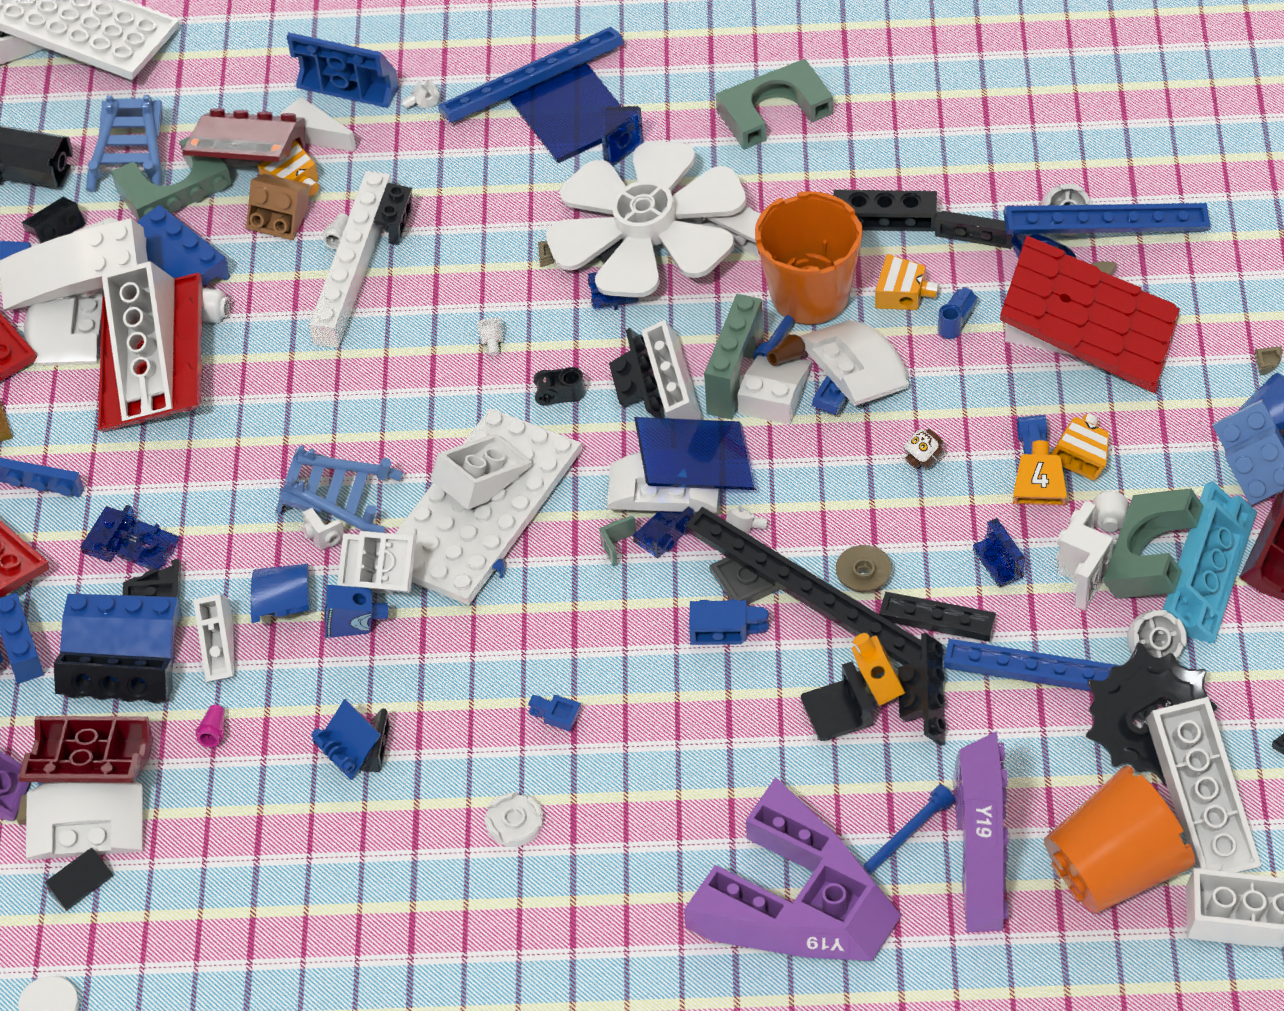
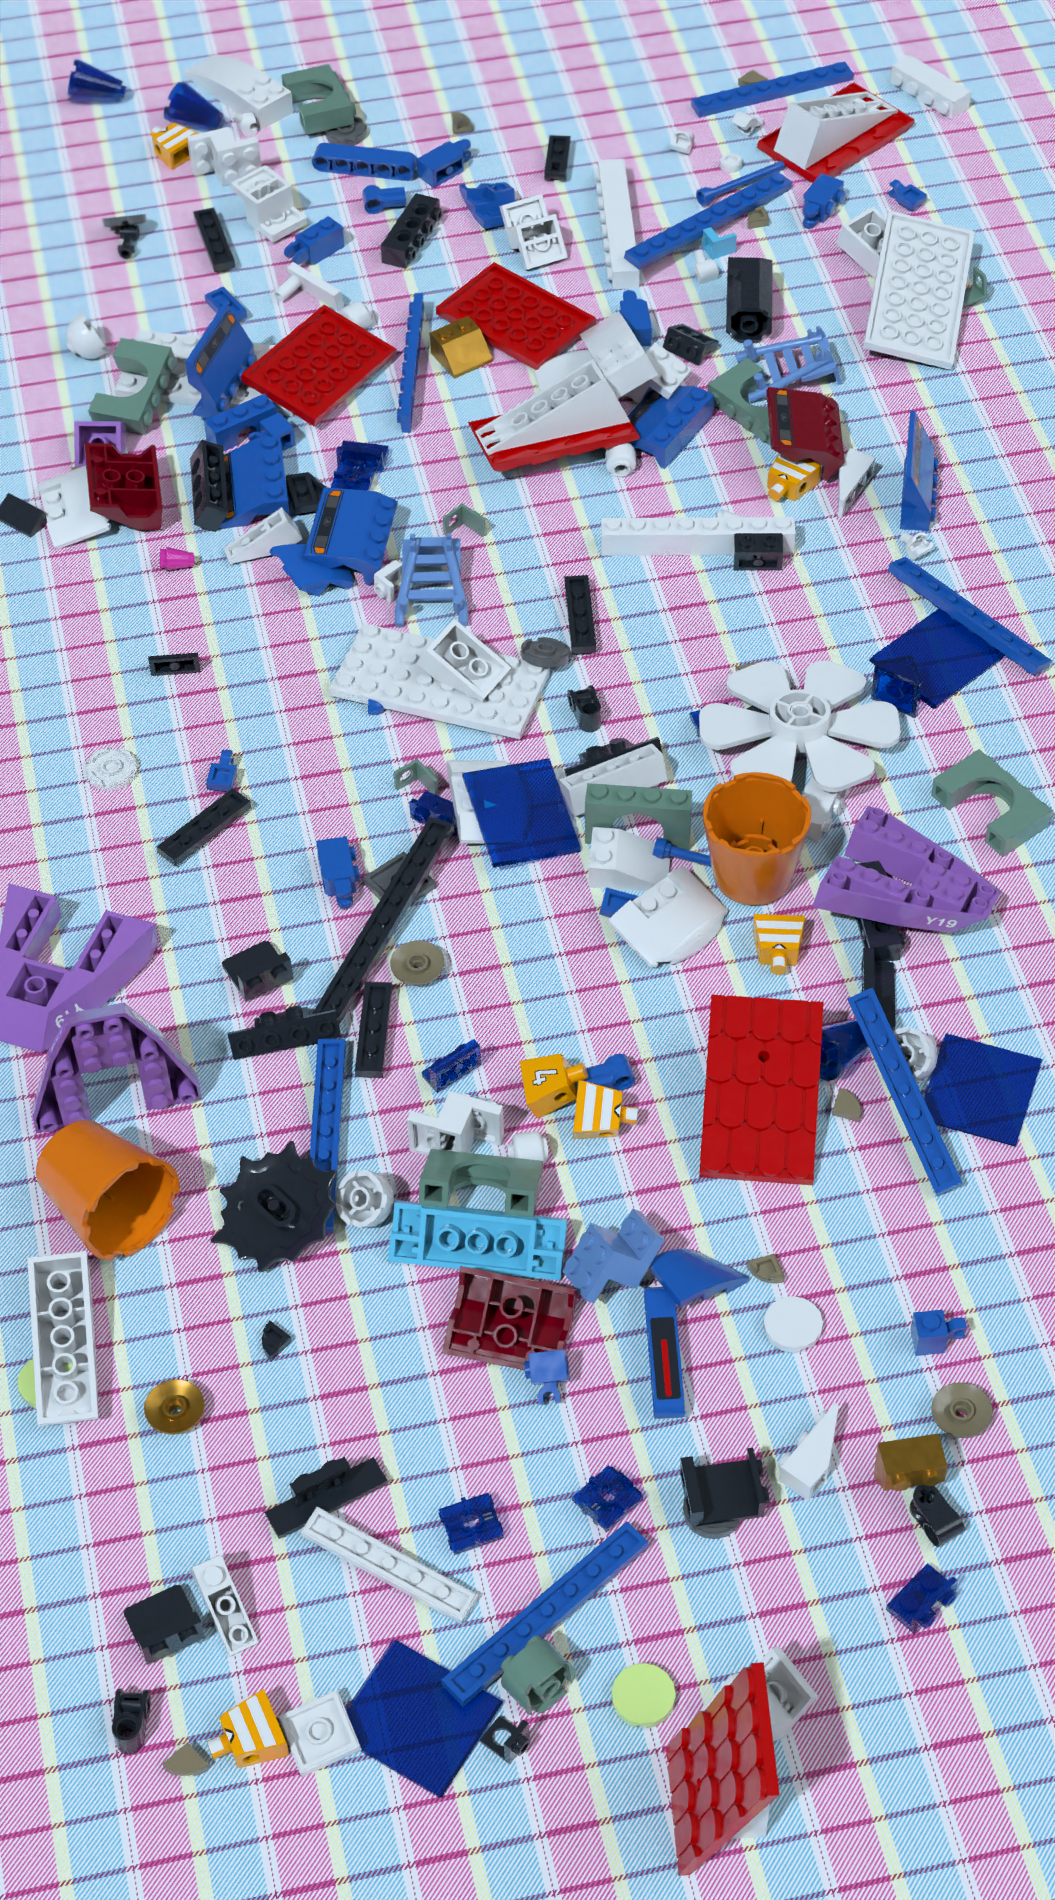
camera: 75 degrees right, 0 degrees up
(44, 608) = (276, 426): none -> blue brick
(245, 544) = (351, 530): none -> blue piece
(253, 445) = (465, 516): none -> sand green bracket
(277, 205) = (745, 472): medium nougat slope -> none
(346, 739) = (163, 637): blue hinge -> none
(350, 611) = (299, 619): blue torso -> none
(377, 561) = (343, 614): white bracket -> none
(425, 373) = (580, 614): none -> black plate
(473, 408) = (545, 652): none -> dark grey tile
(491, 333) = (640, 650): white piece -> none
(629, 736) = (203, 827): none -> black plate
(745, 520) = (456, 868): white piece -> none
(788, 349) = (662, 858): reddish brown cone -> none
(872, 661) = (288, 980): light orange torso -> none
(885, 150) = (944, 888): none -> medium lavender piece
(923, 449) = (570, 987): head -> none
(955, 312) = (751, 985): blue piece -> none
(1100, 169) = (981, 1089): none -> clear blue piece
(1203, 786) = (196, 1260): white slope -> none

